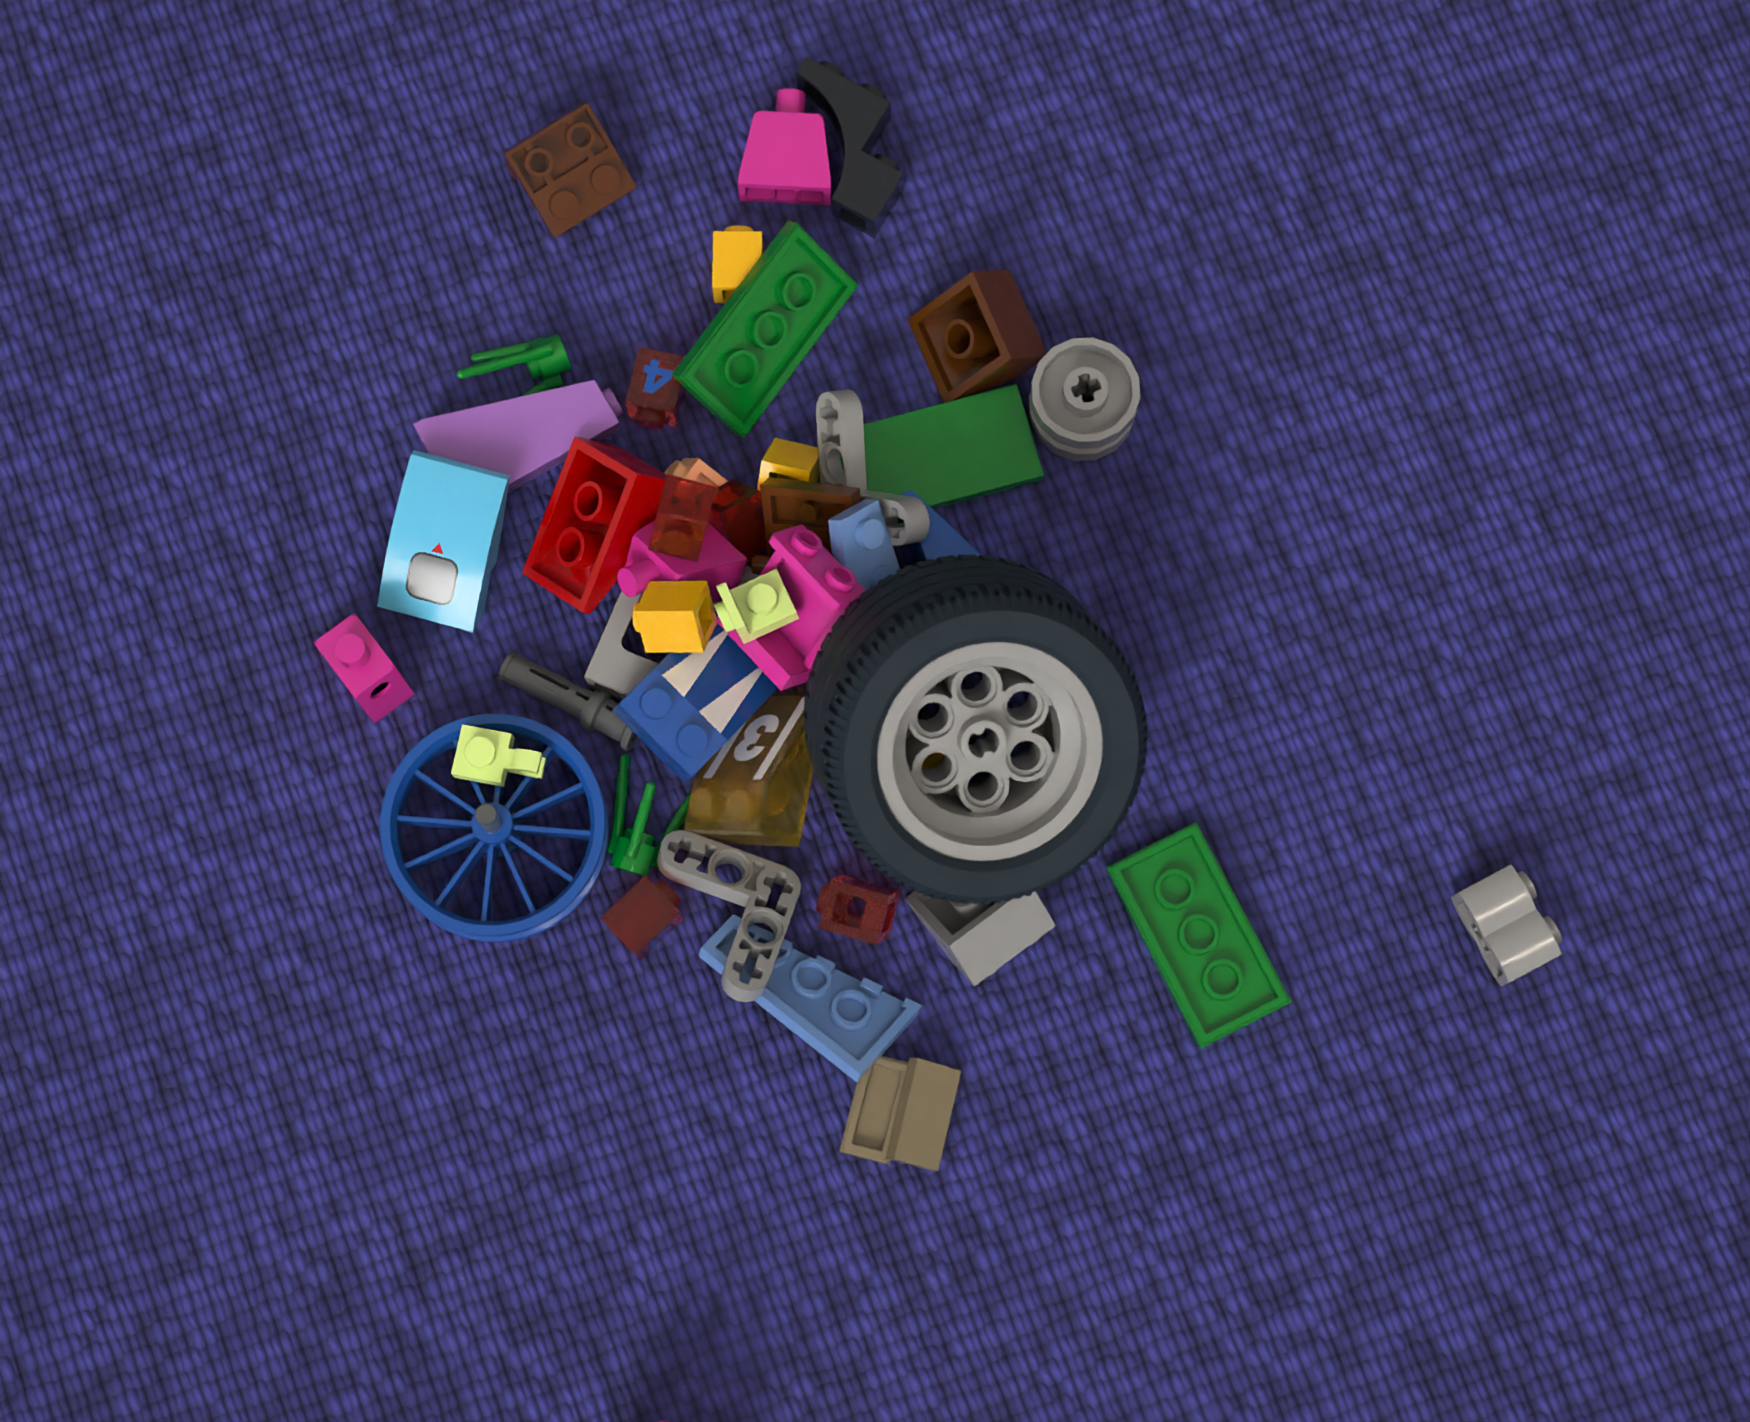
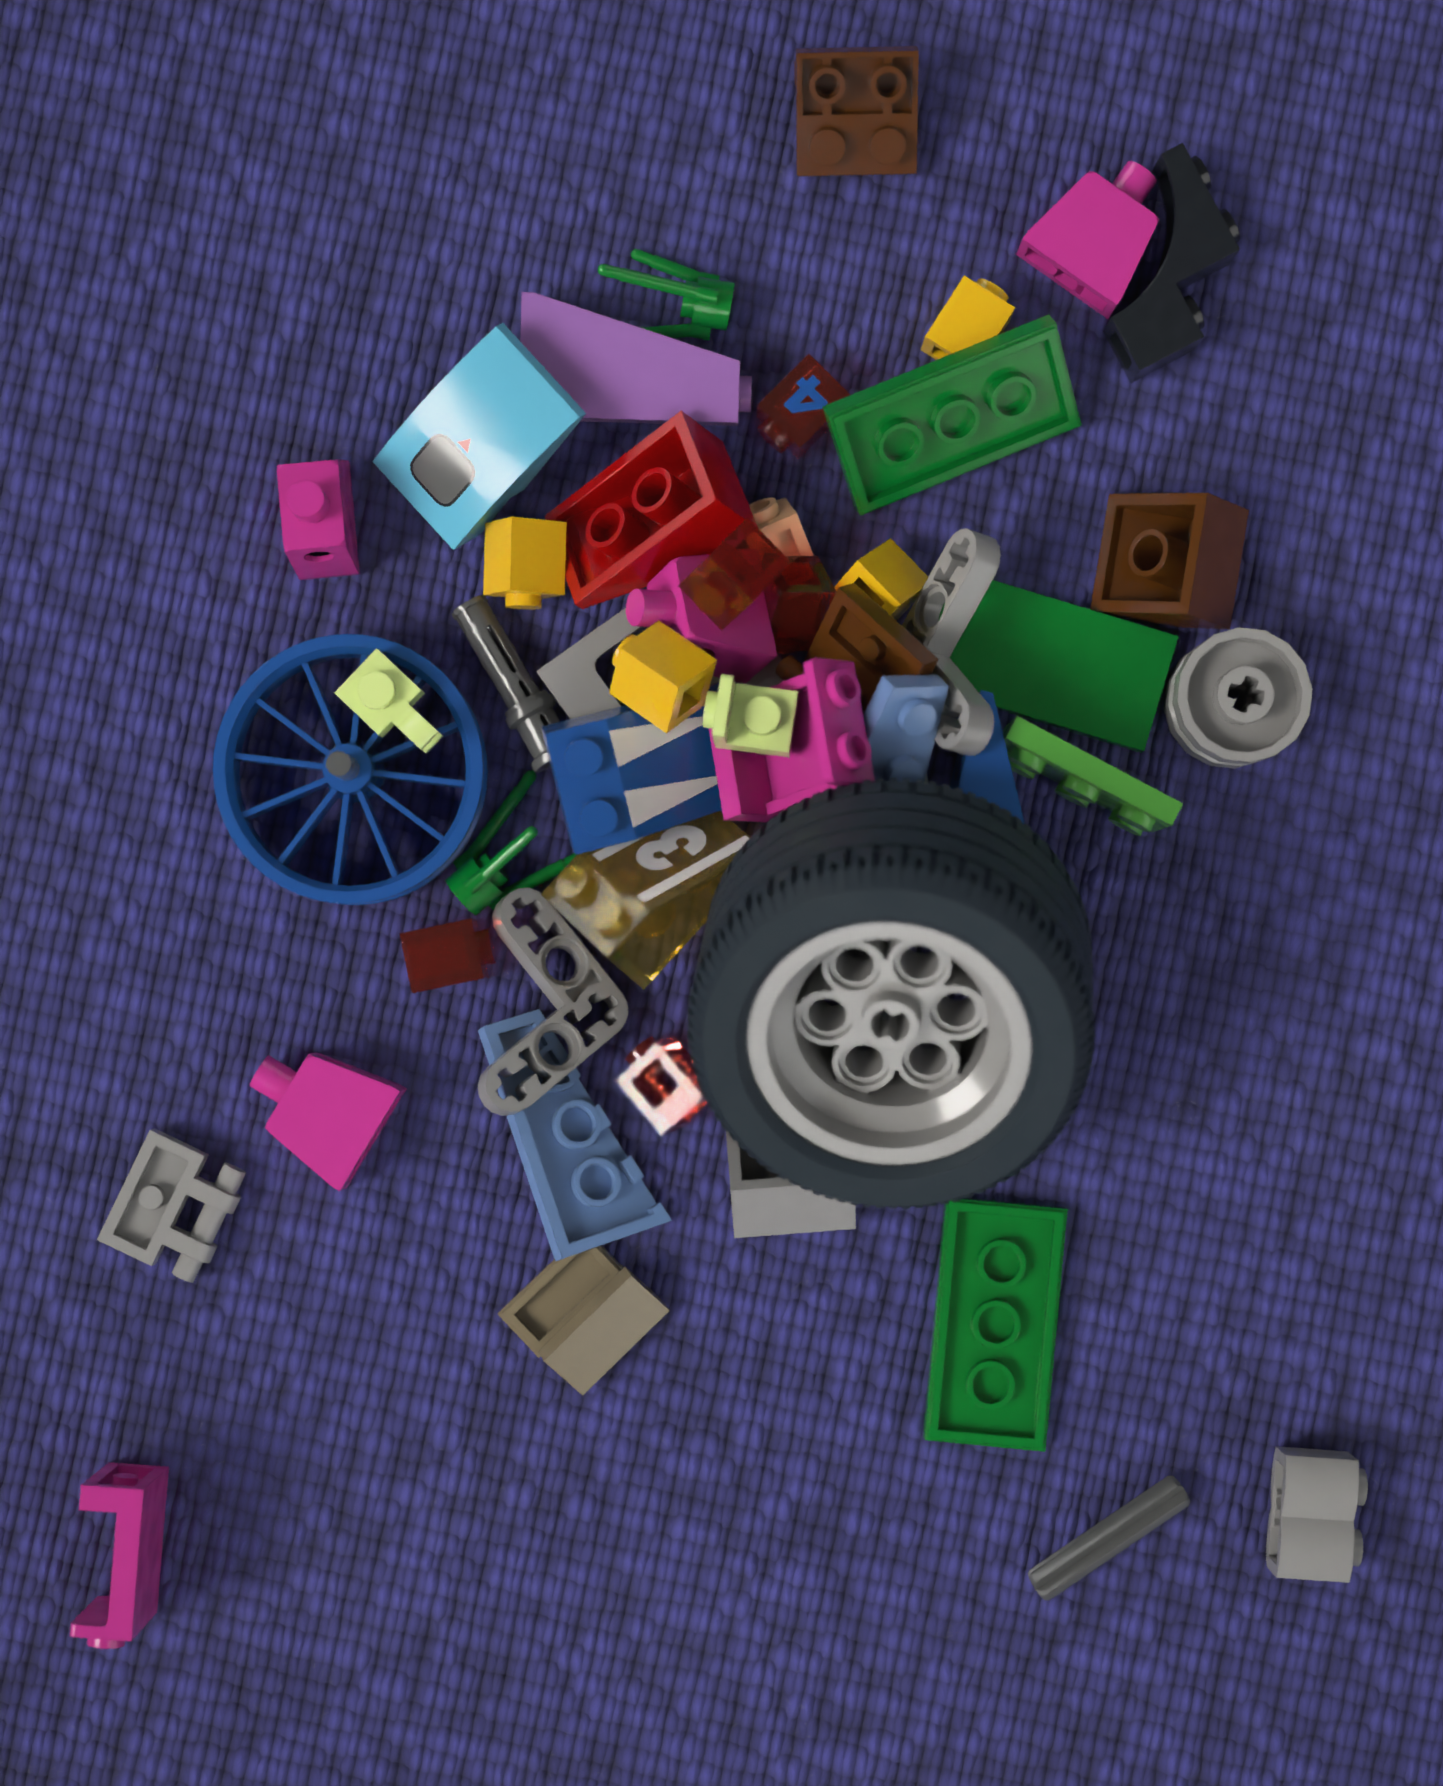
camera: 30 degrees right, 10 degrees up
(527, 607) = (524, 561): none -> yellow brick
(538, 1221) = (154, 1198): none -> light grey plate
(626, 1081) = (327, 1112): none -> dark pink torso
(1018, 512) = (1088, 779): none -> bright green plate
(1376, 1035) = (1108, 1537): none -> dark grey axle

